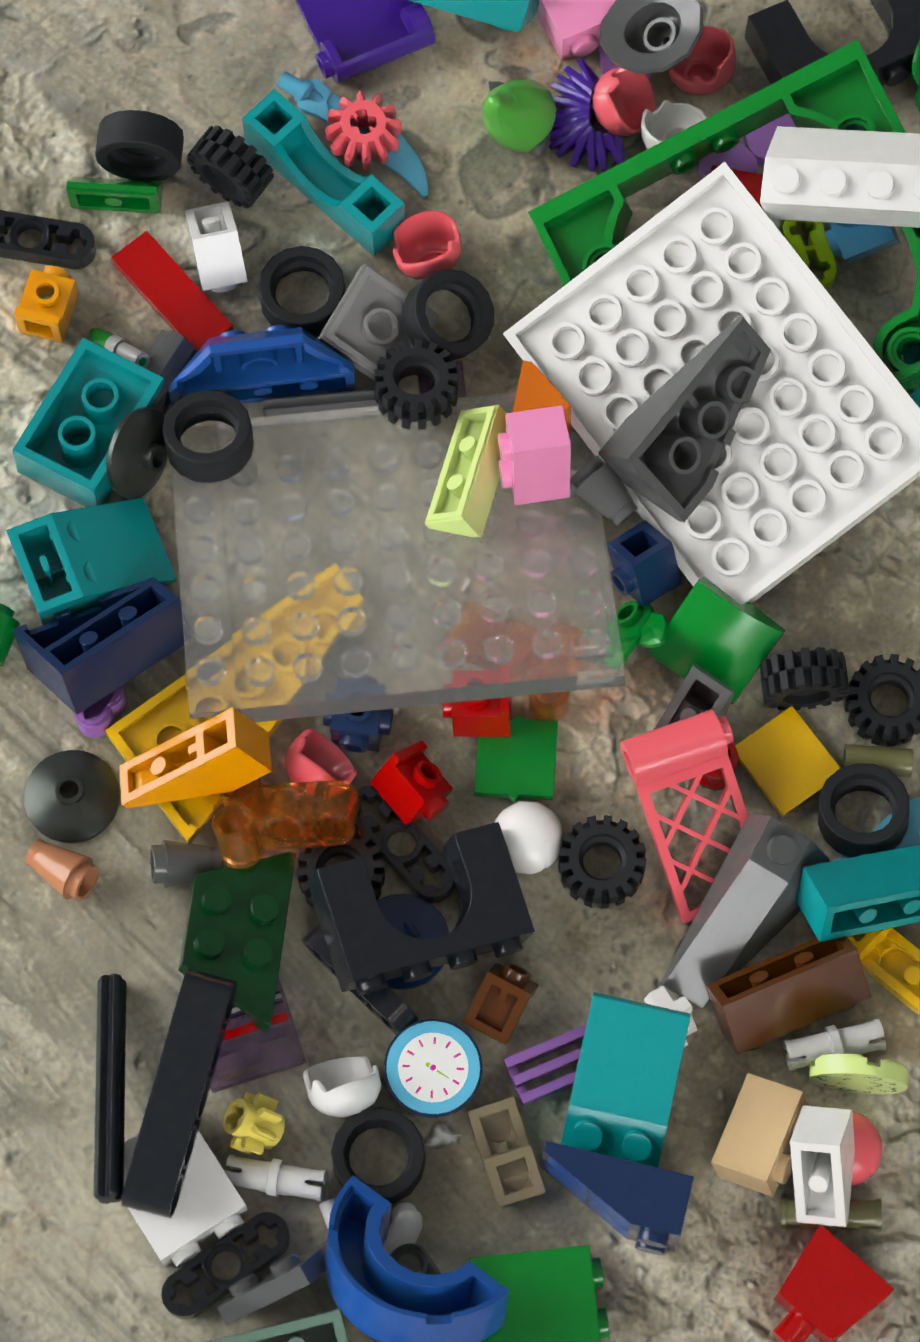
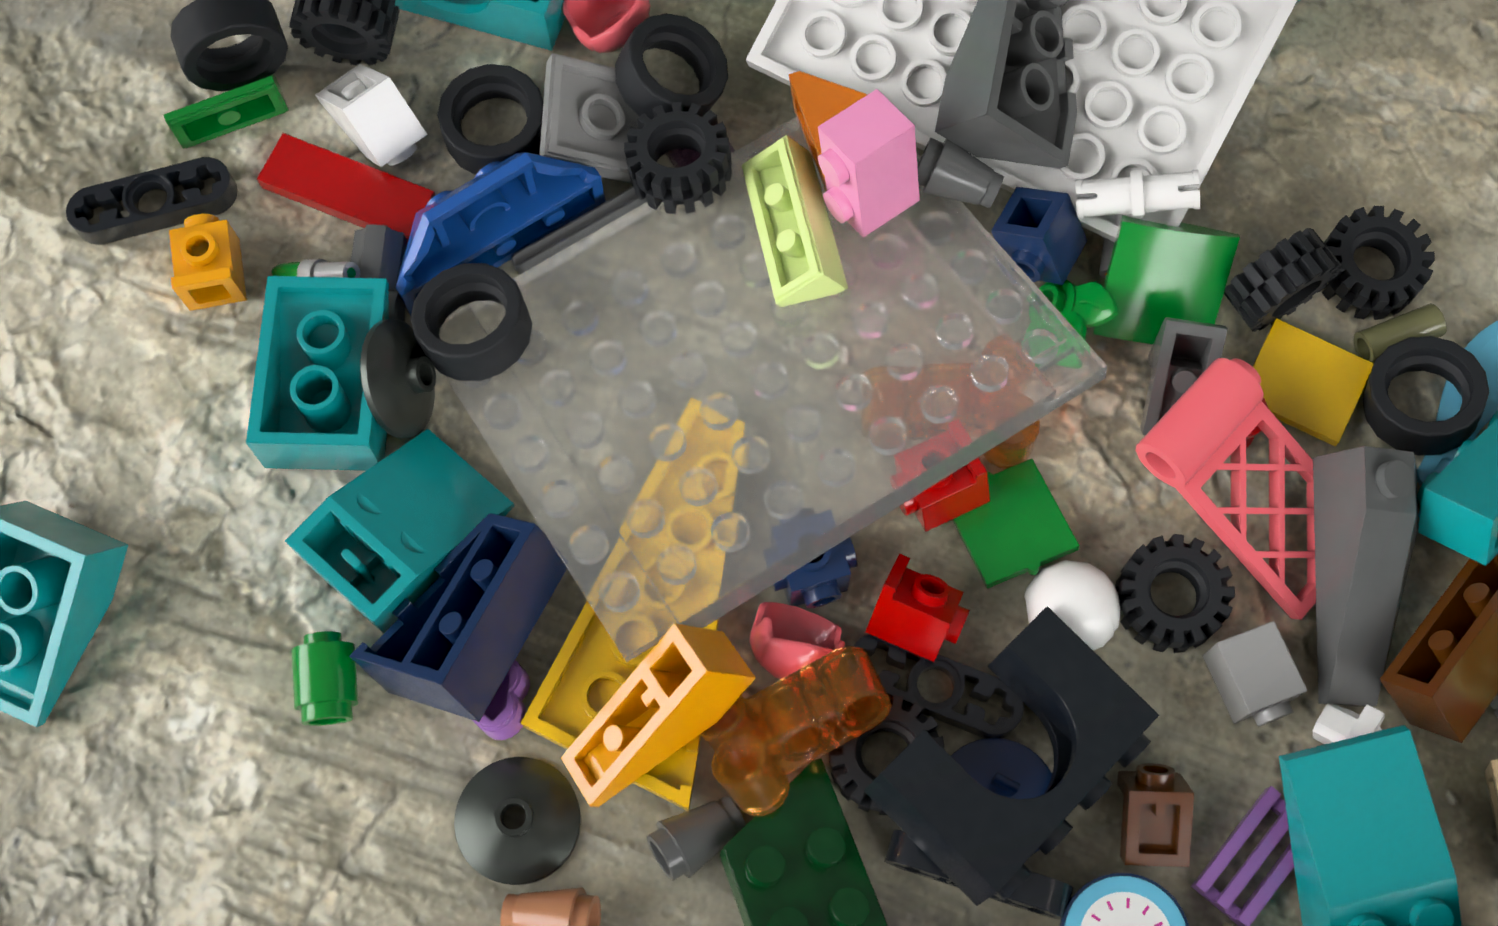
camera: 25 degrees left, 0 degrees up
(625, 942) = (1255, 675): none -> light grey brick
(721, 566) = (1137, 194): none -> white pin

